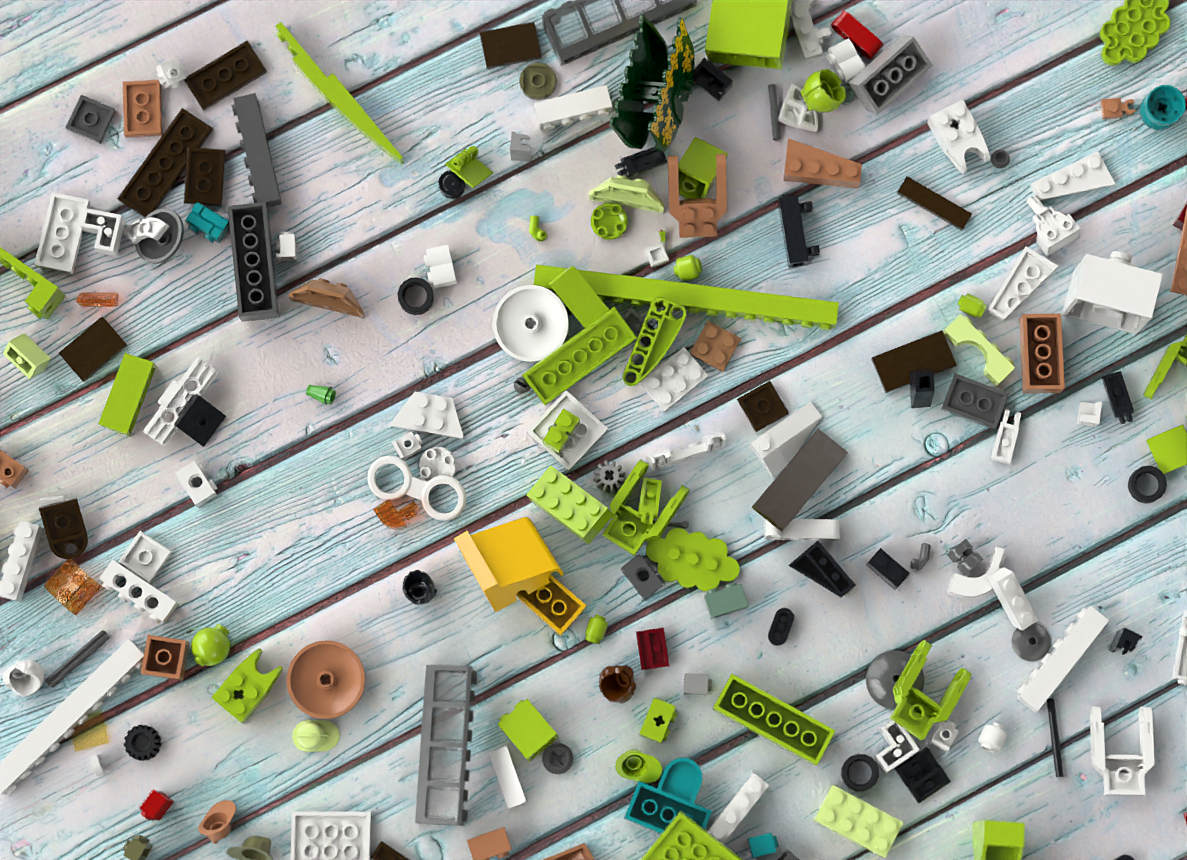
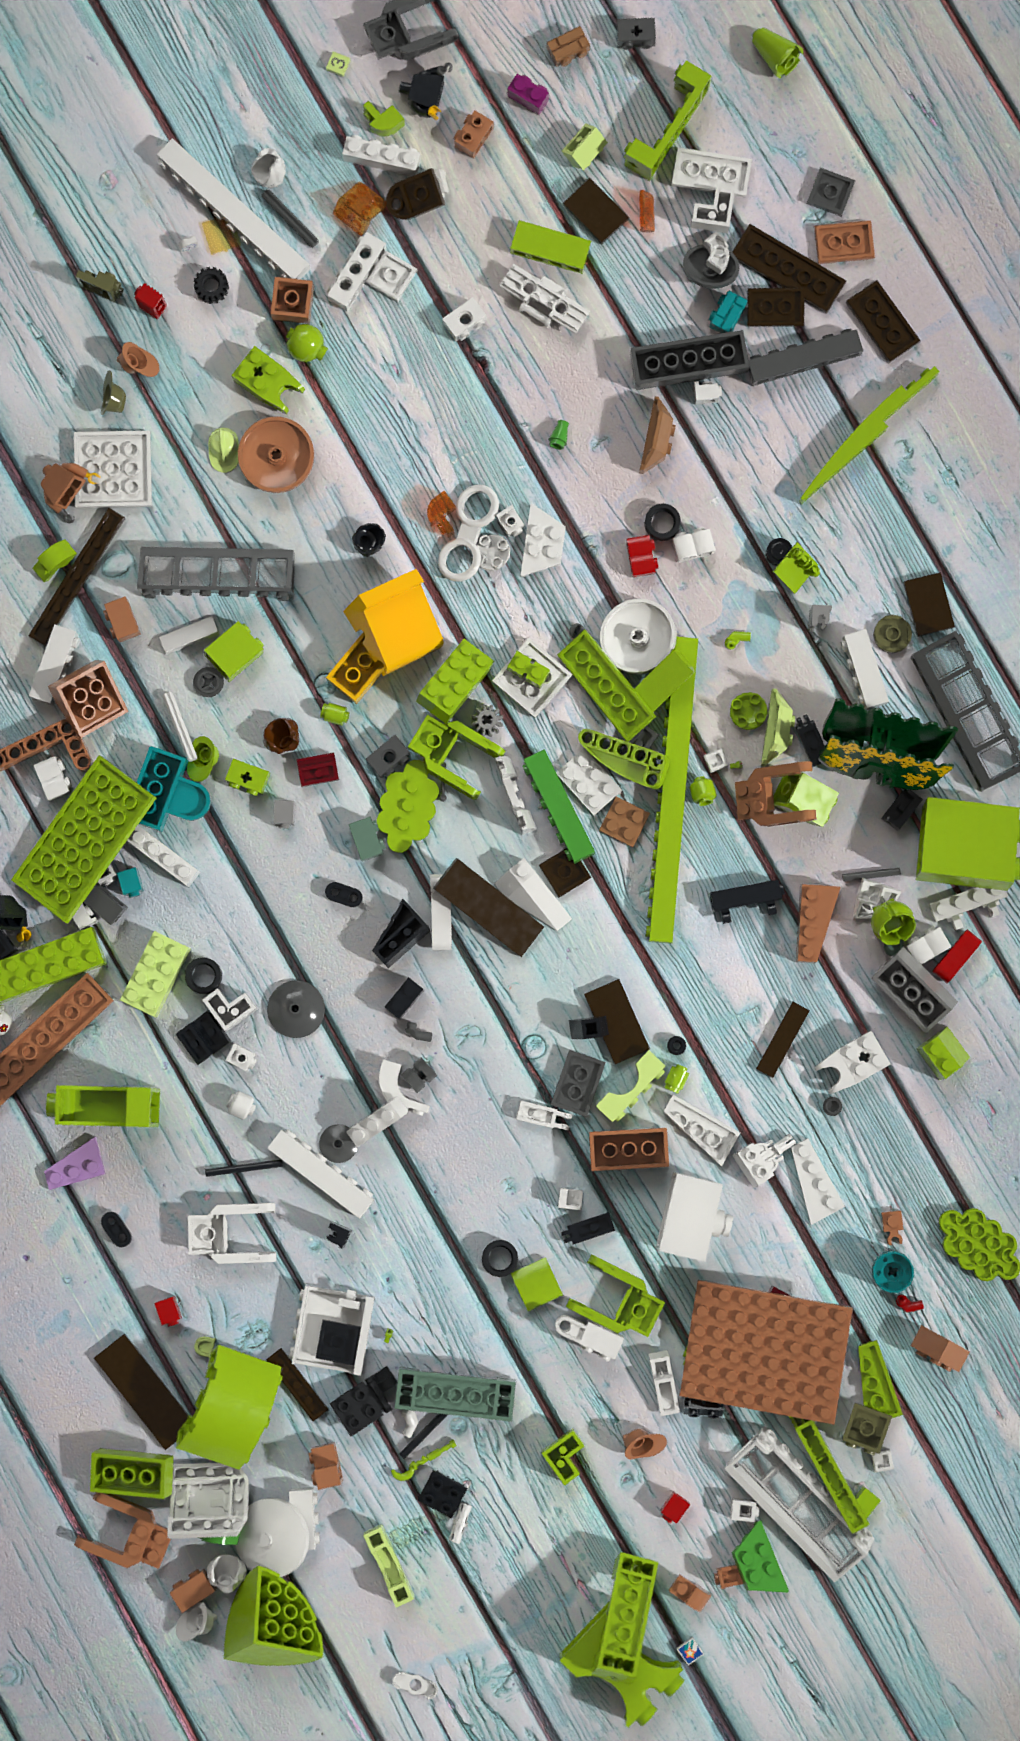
camera: 90 degrees right, 5 degrees up
(171, 67) = (883, 260): white brick -> none
(199, 420) = (527, 318): black plate -> none
(449, 317) = (641, 556): none -> red brick
(603, 788) = (179, 726): none -> white axle
(649, 499) = (464, 760): lime hinge -> none
(698, 408) = (559, 807): none -> bright green brick
(773, 720) = (251, 888): lime brick -> none
(916, 710) = (262, 1026): lime plate -> none
(940, 299) = (681, 1041): none -> black plate
(953, 51) = (943, 1053): none -> lime slope

